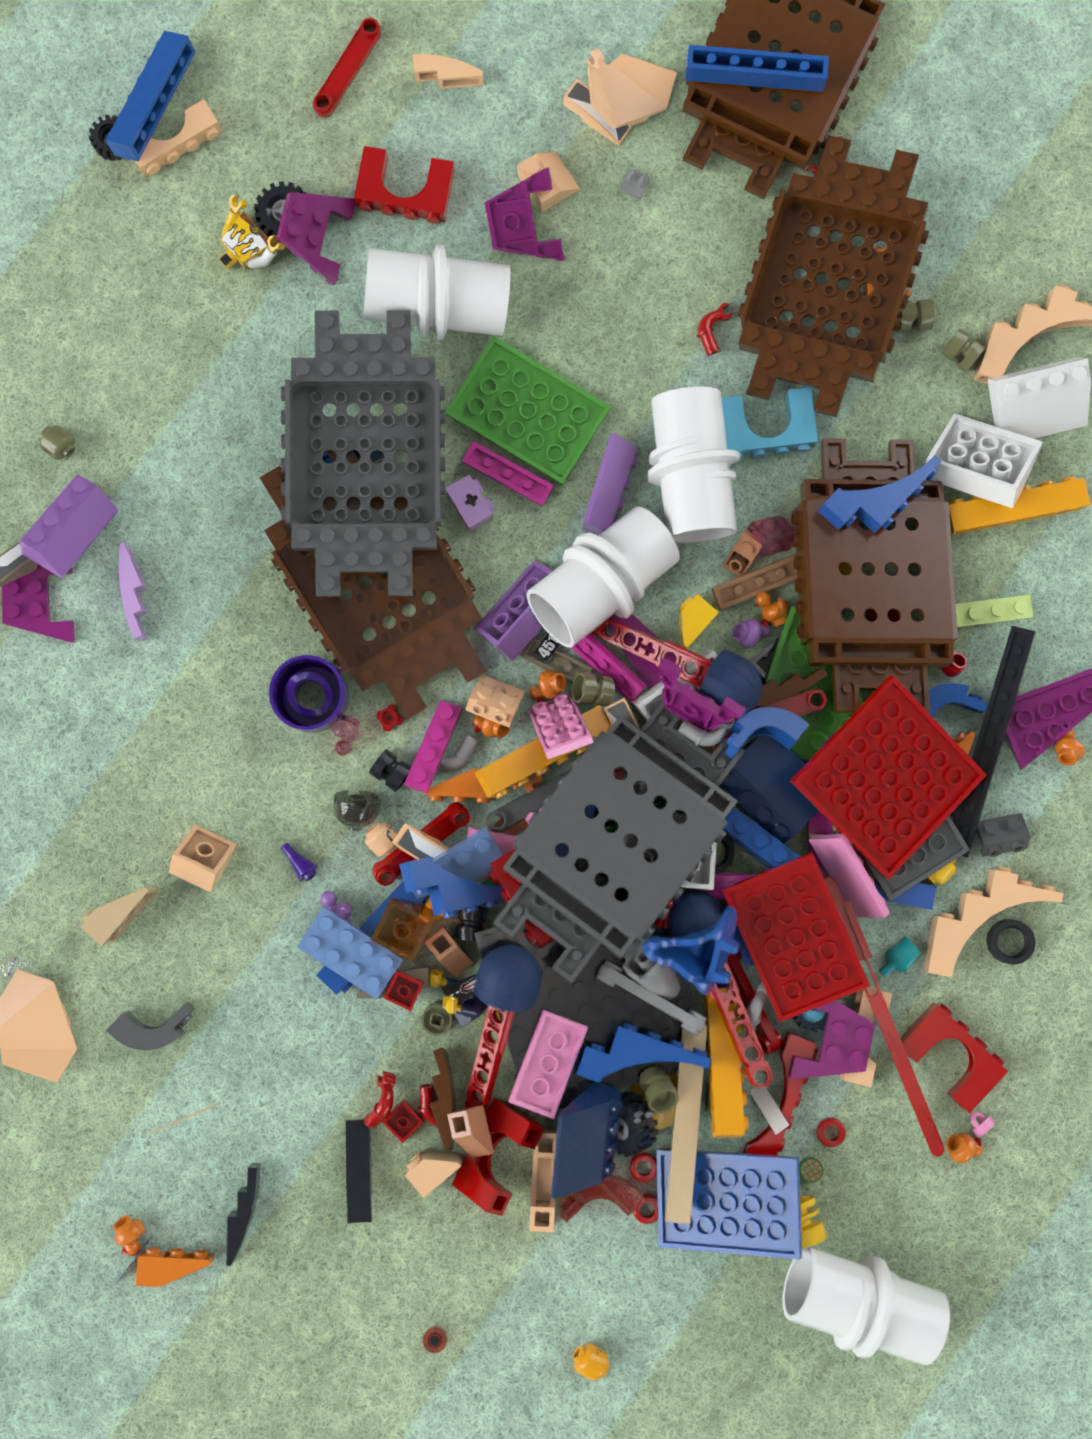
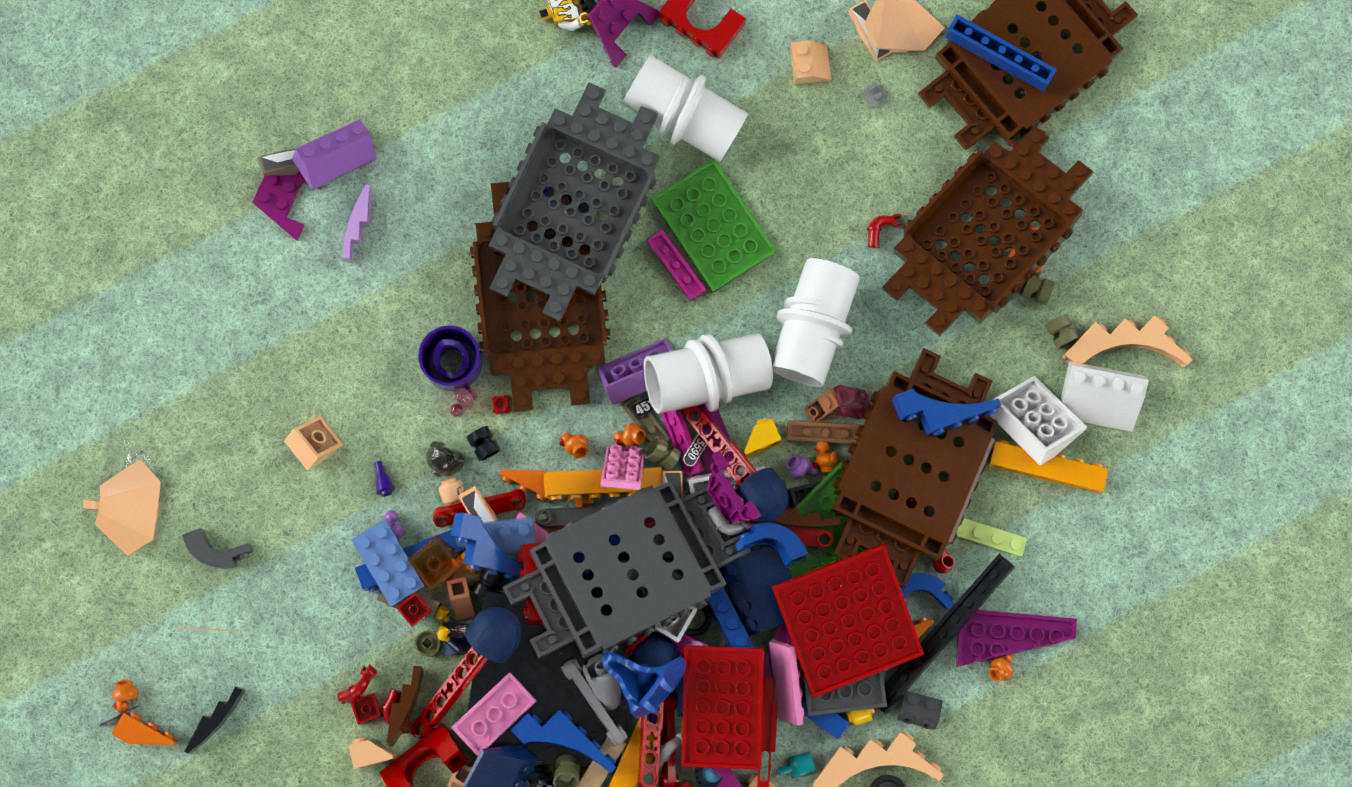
camera: 25 degrees right, 5 degrees down
(57, 442) = (356, 89): olive head -> none
(111, 920) = (229, 454): tan slope -> none
(358, 1172) = (315, 730): black slope -> none
(433, 747) = (523, 441): dark pink plate -> none
(463, 756) = (538, 459): light grey piece -> none
(471, 516) = (636, 284): lavender brick -> none
(471, 1131) = (413, 737): nougat slope -> none
(495, 700) = (585, 427): light nougat plate -> none
(513, 221) = (769, 80): magenta wing -> none
(609, 485) = (747, 308): medium lavender slope -> none
(627, 669) = (694, 451): none -> sticker
(799, 435) = (907, 336): medium azure arch -> none

